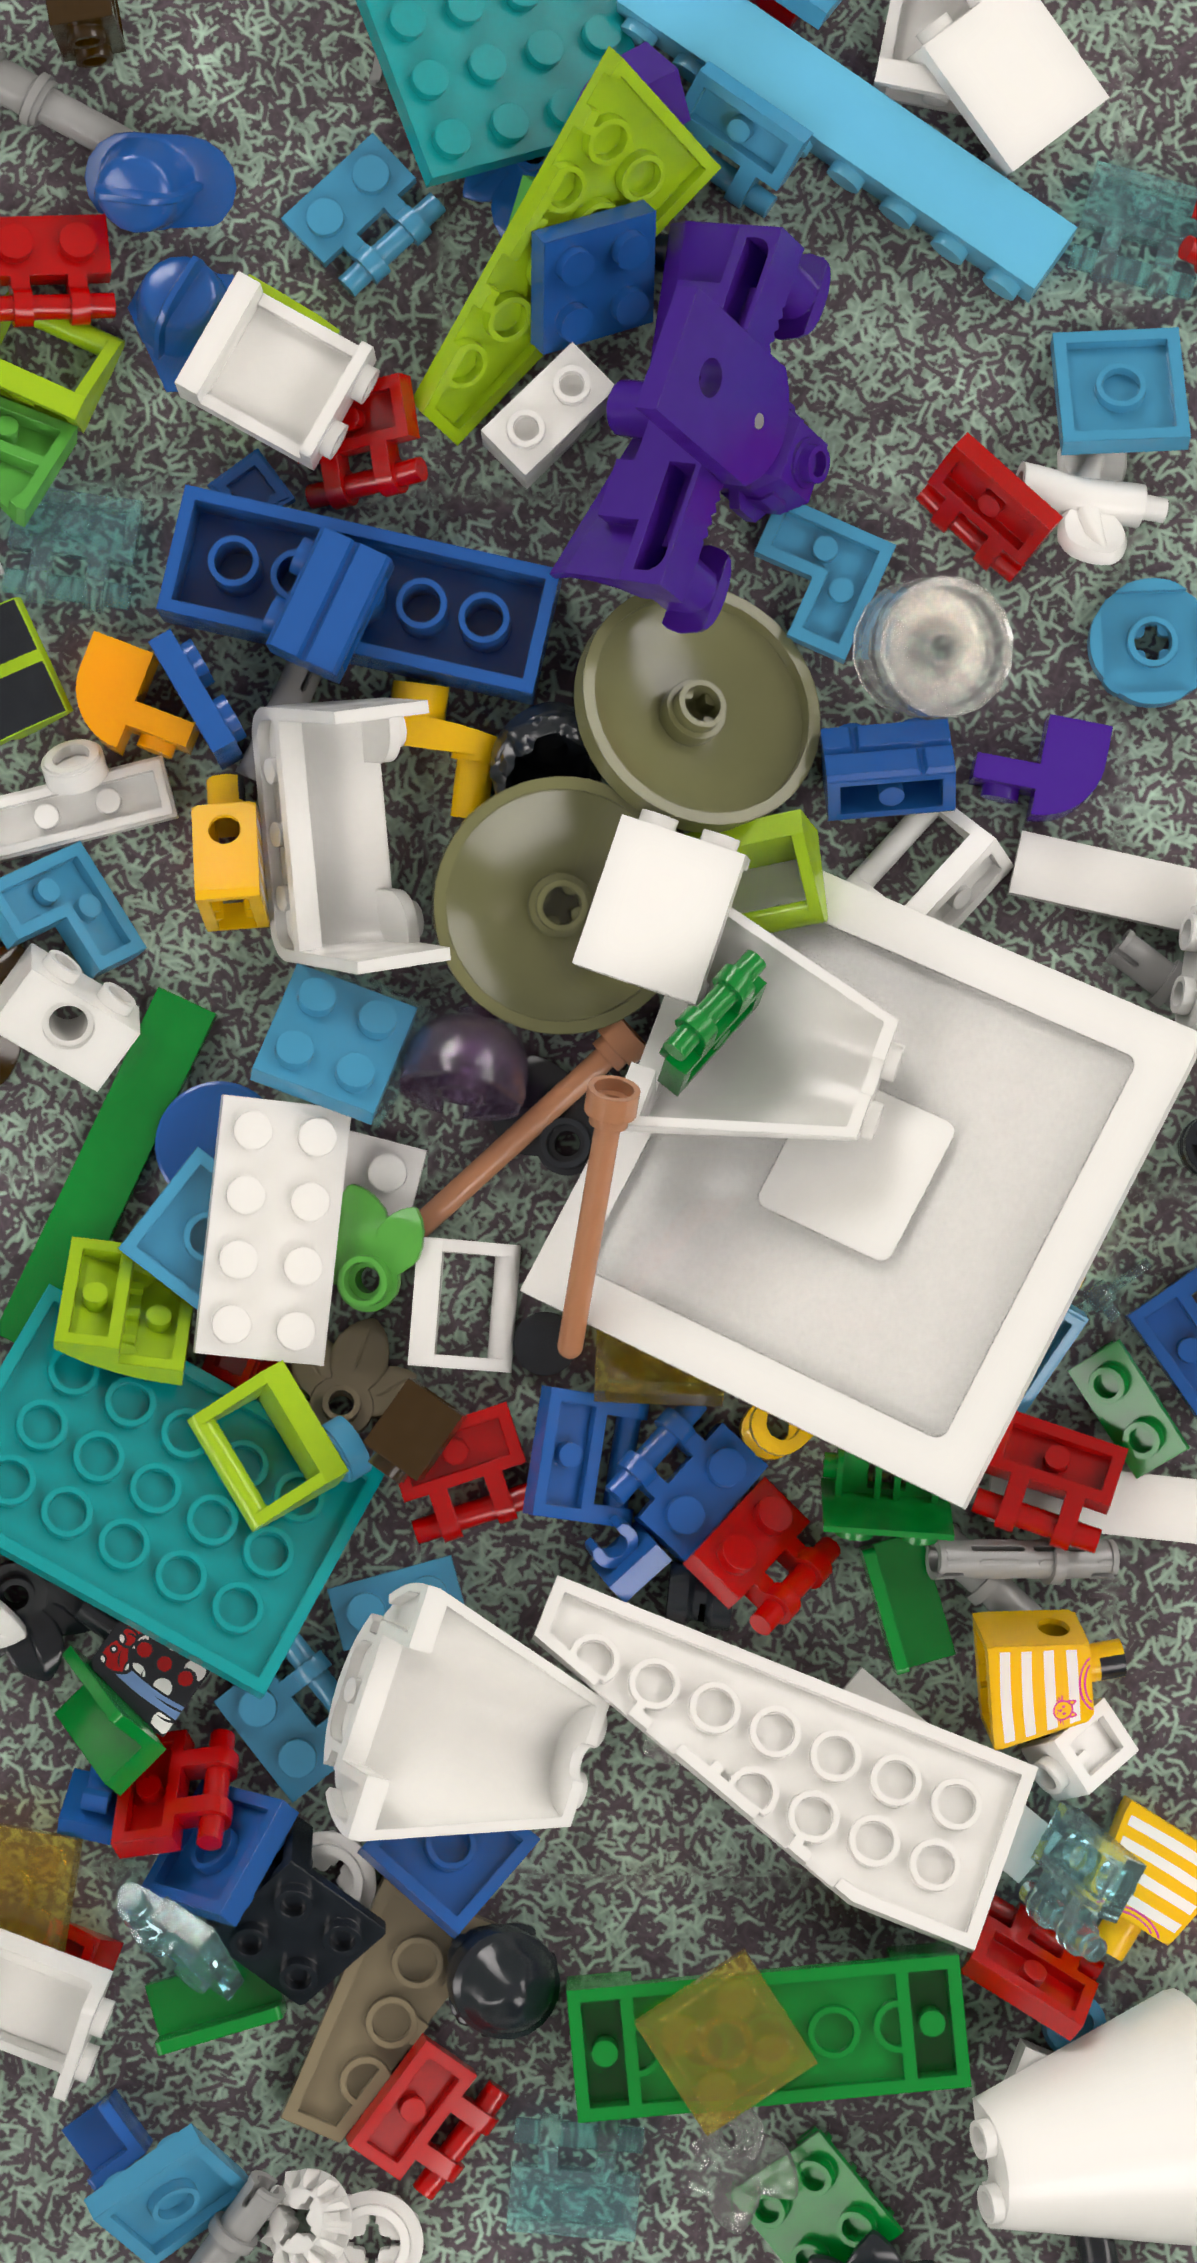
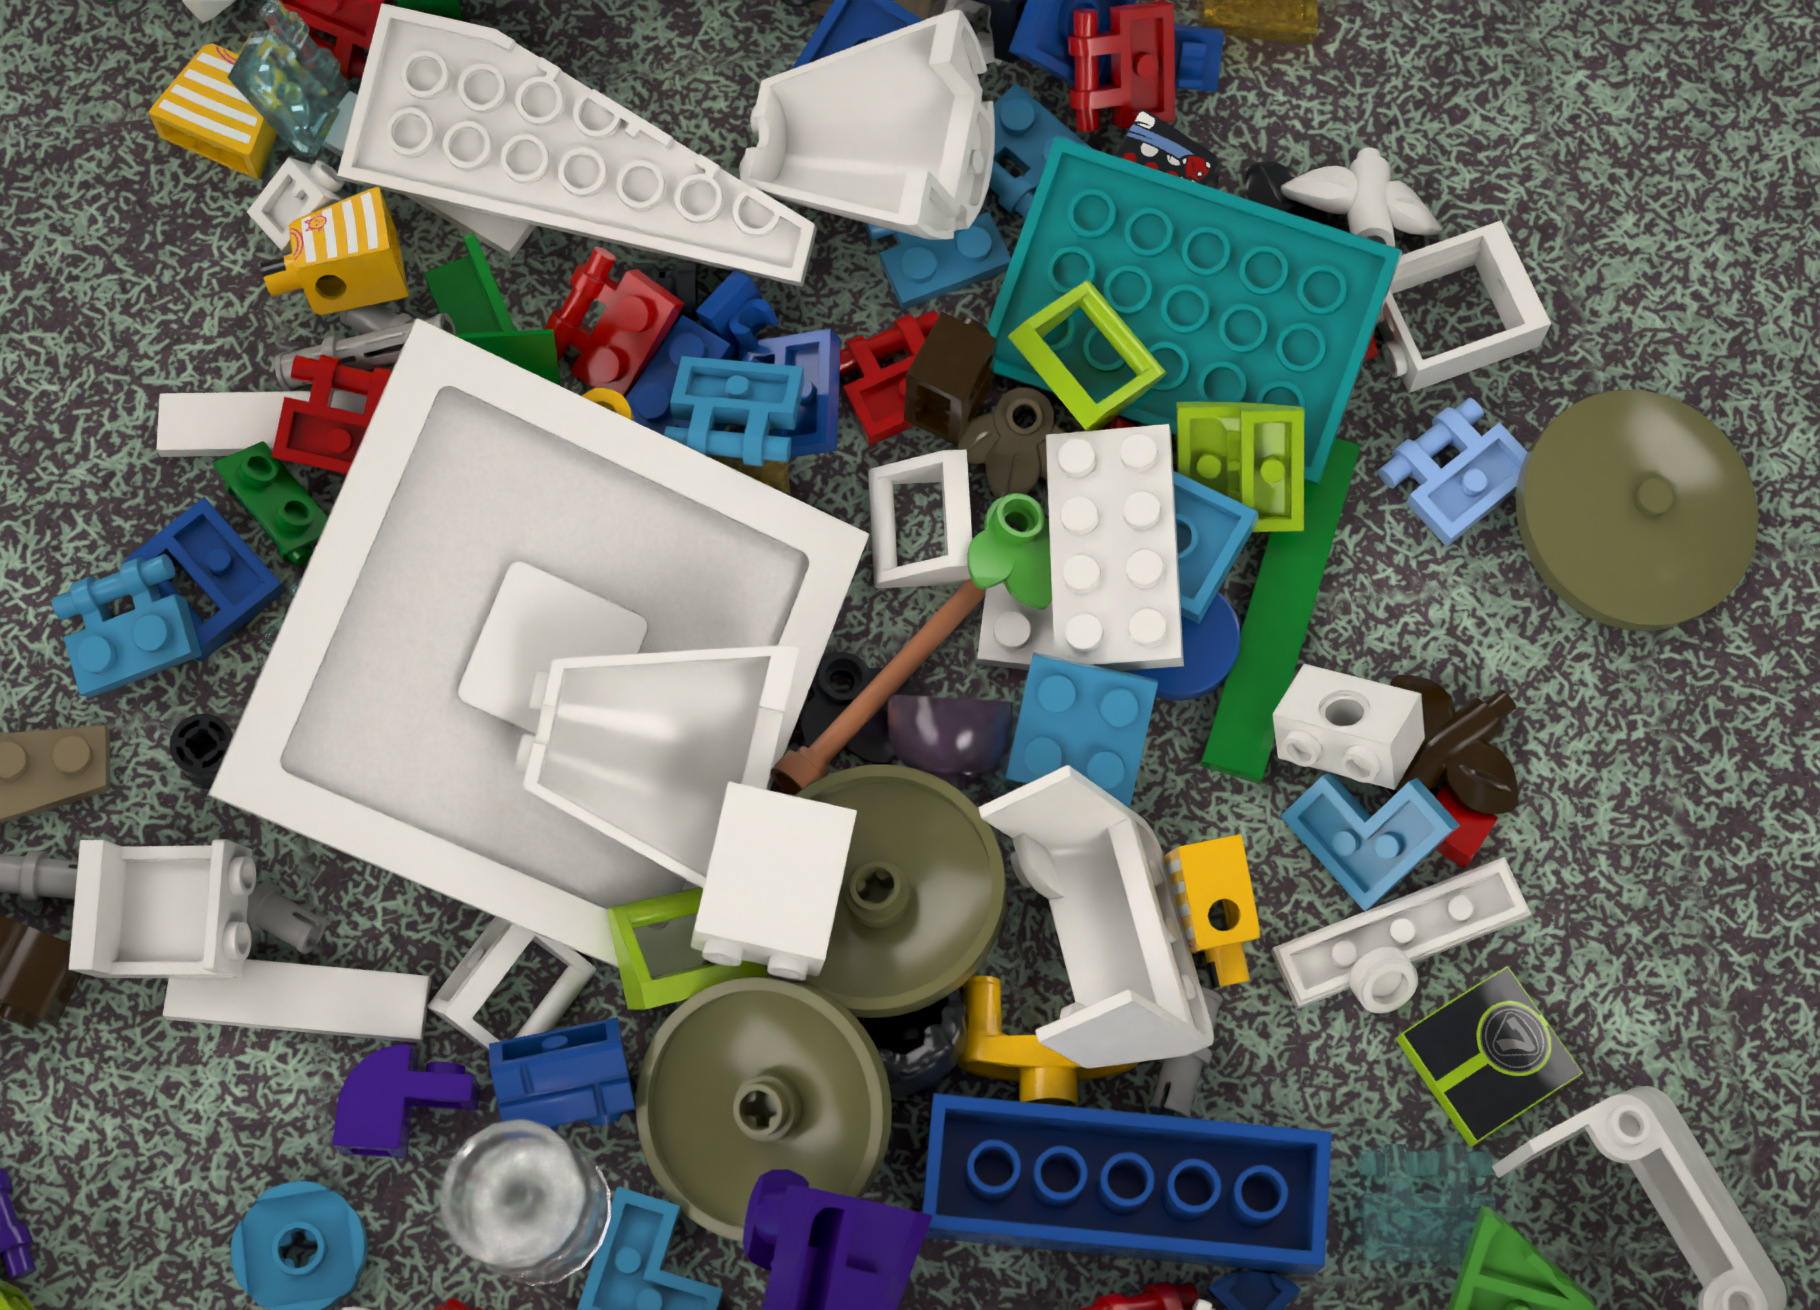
camera: 170 degrees right, 15 degrees down
(107, 1728) = (1188, 102): green panel -> none
(112, 695) = (1359, 1049): light orange brick -> none
(190, 678) = (1258, 1033): blue plate -> none
(328, 603) = (1156, 1148): blue brick -> none
(349, 1447) = (1017, 367): dark azure tile -> none
(537, 1344) = (841, 495): black tile -> none
(610, 1105) = (799, 650): nougat piece -> none
(637, 1442) = (736, 394): none -> dark azure plate
(712, 1022) = (696, 793): green plate -> none

